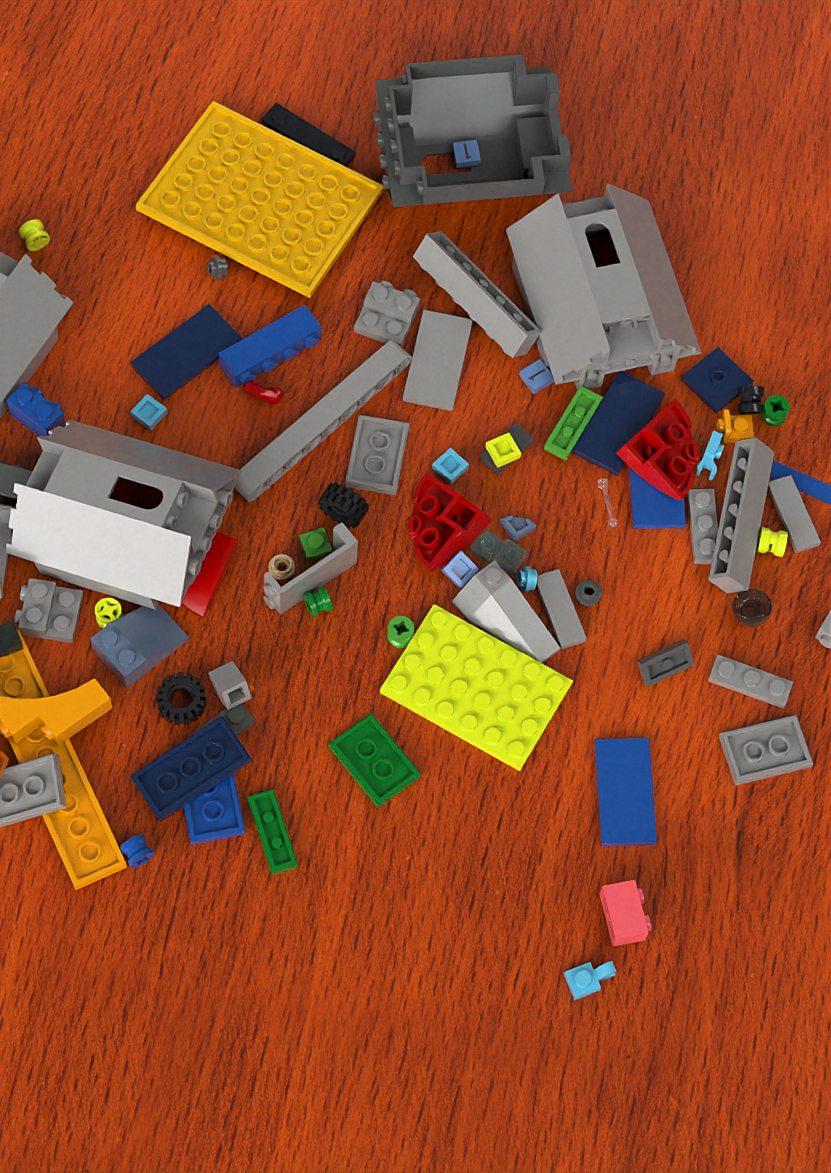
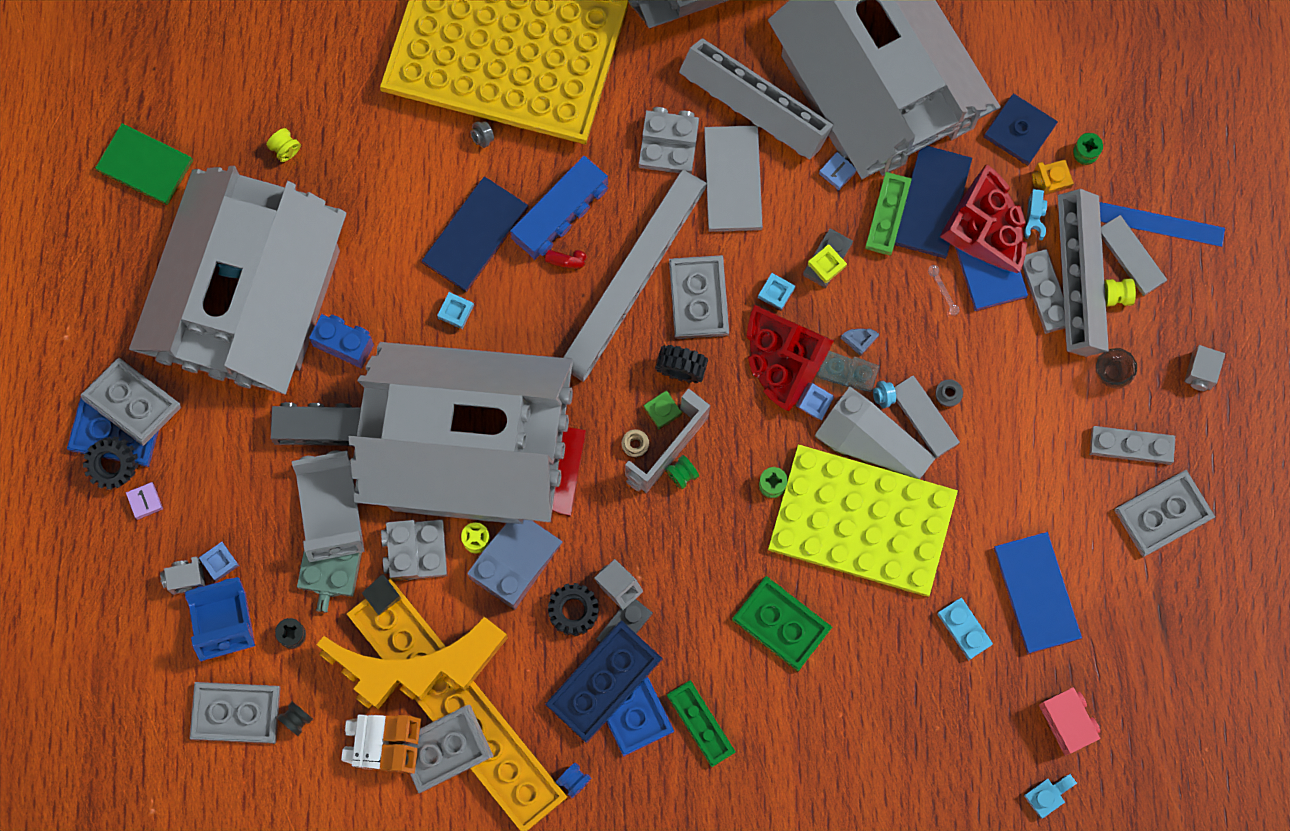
camera: 10 degrees left, 10 degrees up
(547, 807) = (965, 628): none -> medium azure plate
(665, 662) = (1044, 448): dark grey plate -> none
(750, 399) = (1061, 144): black wheel -> none

